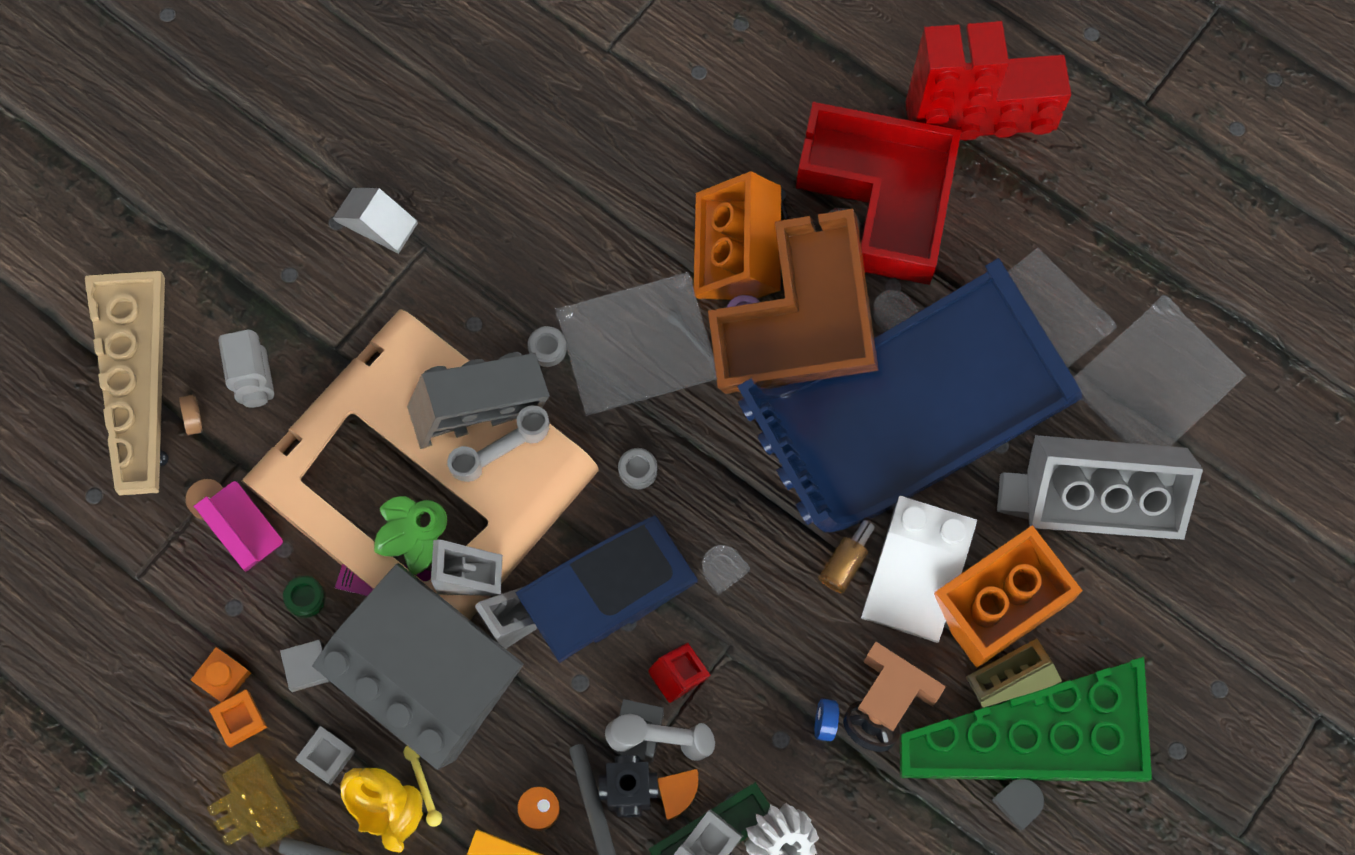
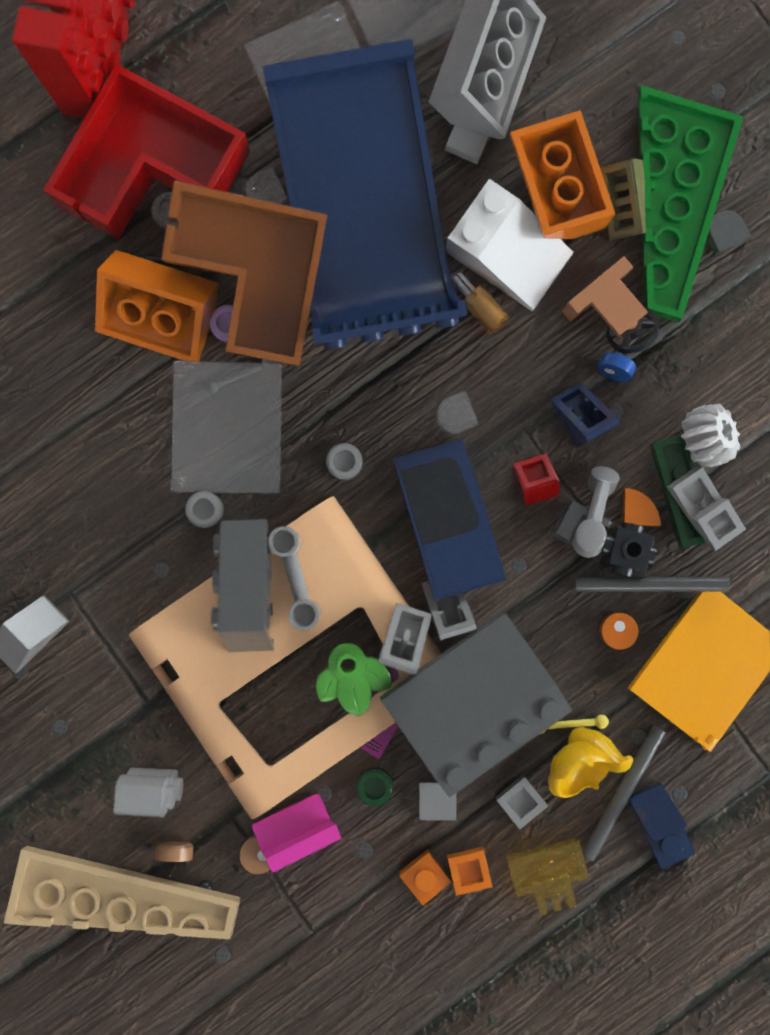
camera: 75 degrees left, 15 degrees up
(762, 699) = (583, 414): none -> dark blue slope

